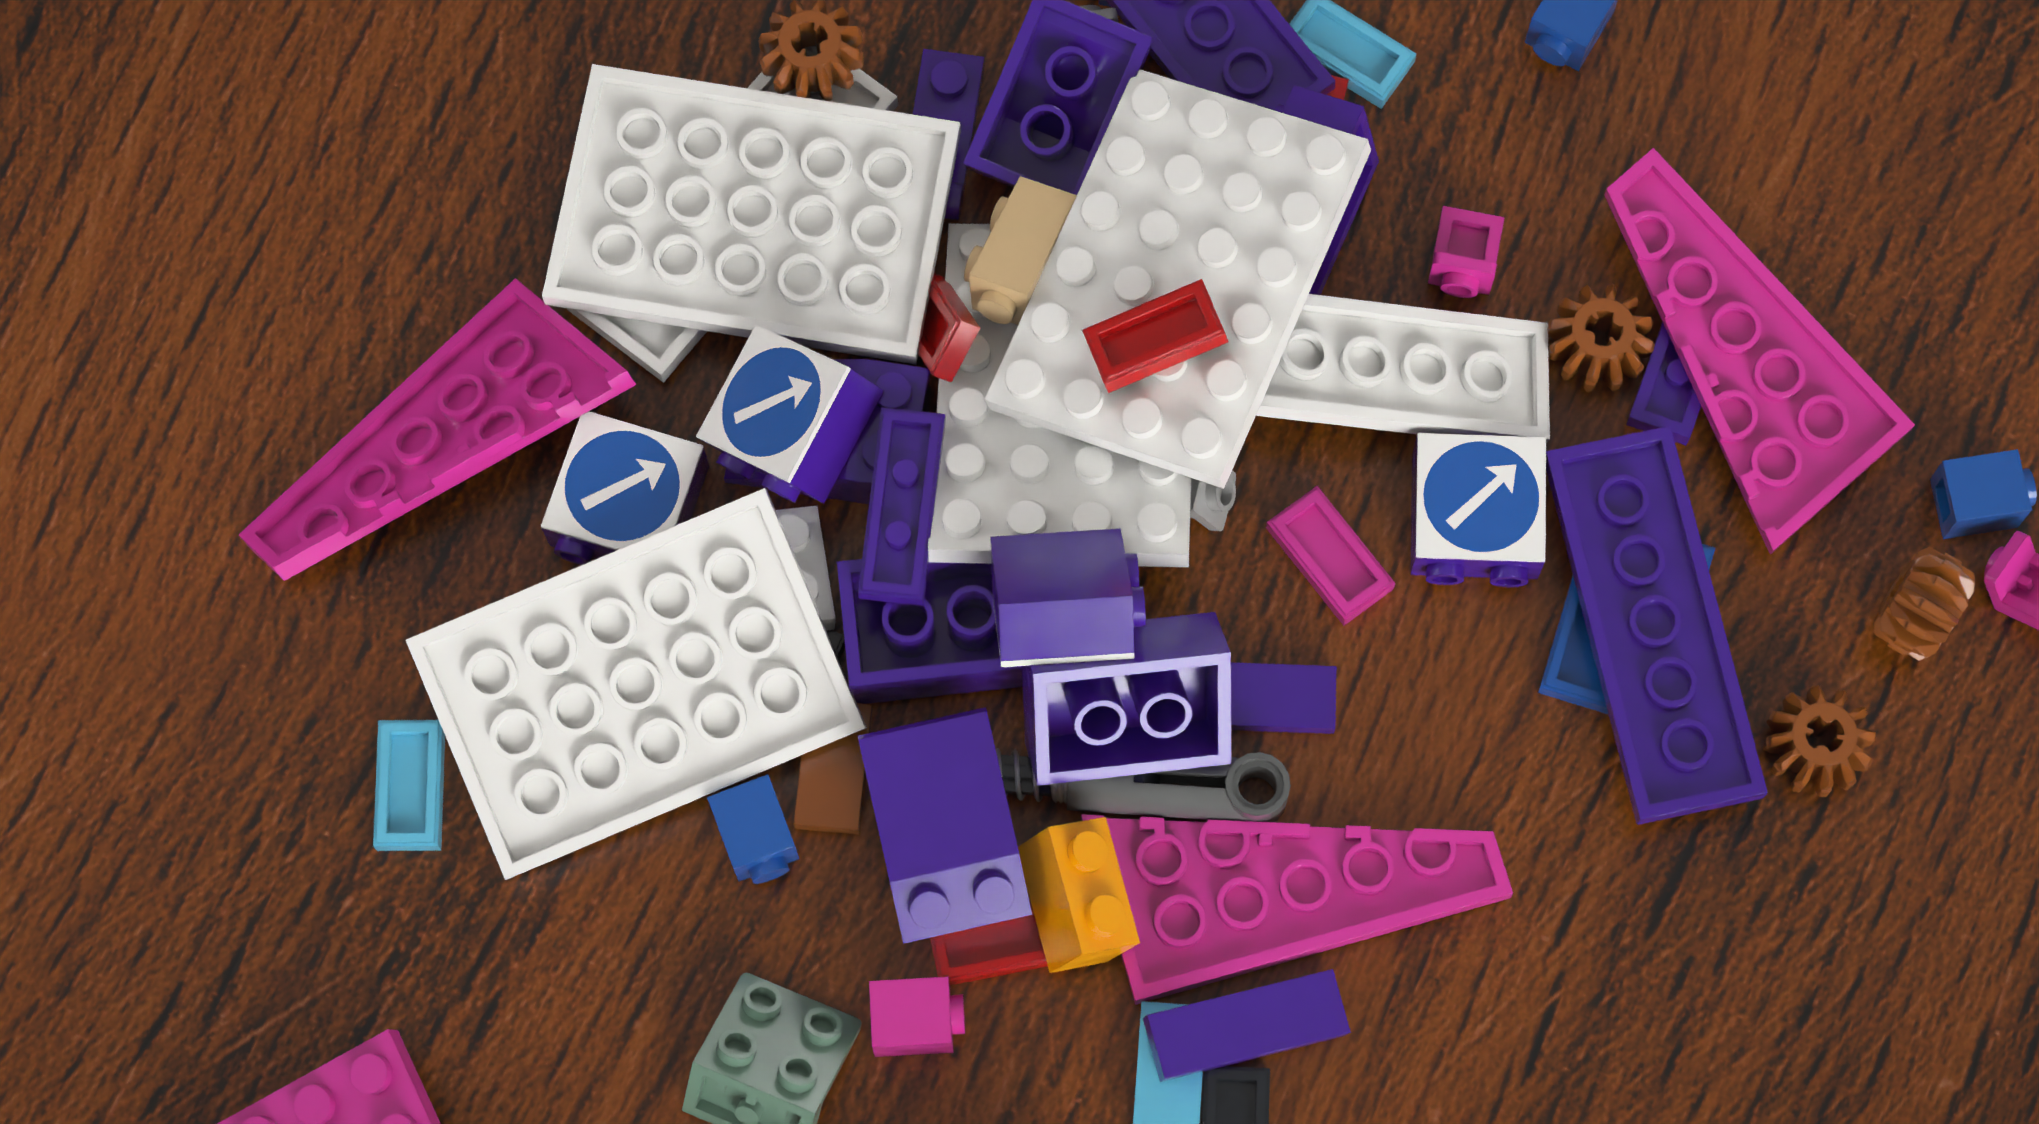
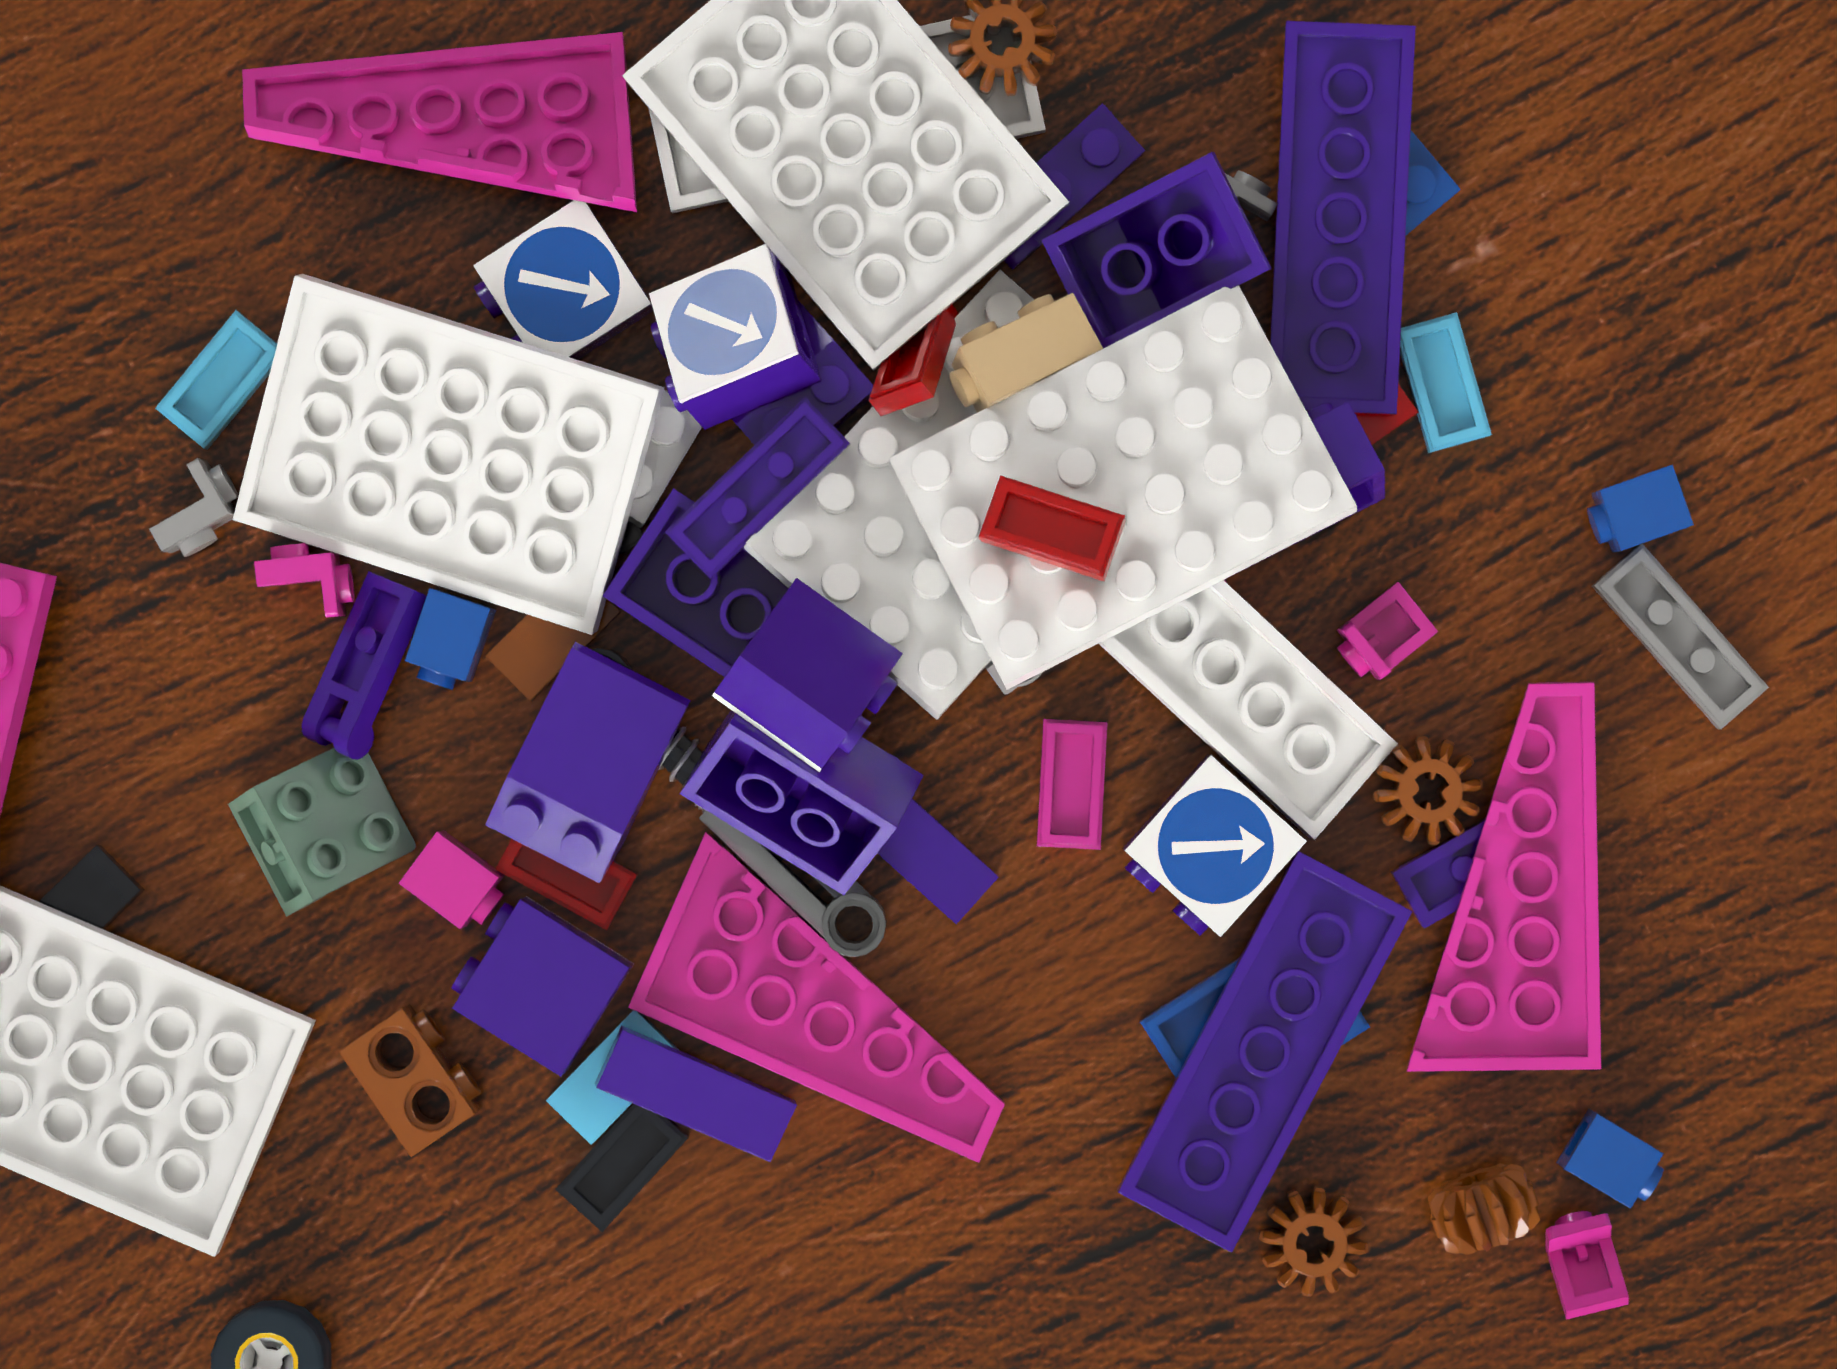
camera: 45 degrees right, 15 degrees up
(478, 905) = (194, 526): none -> light grey bracket
(588, 873) = (294, 565): none -> dark pink bracket
(702, 907) = (363, 666): none -> dark purple plate
(1051, 1040) = (540, 984): none -> dark purple piece
(1078, 894) = (647, 895): light orange brick -> none
(1682, 87) = (1680, 636): none -> light grey tile

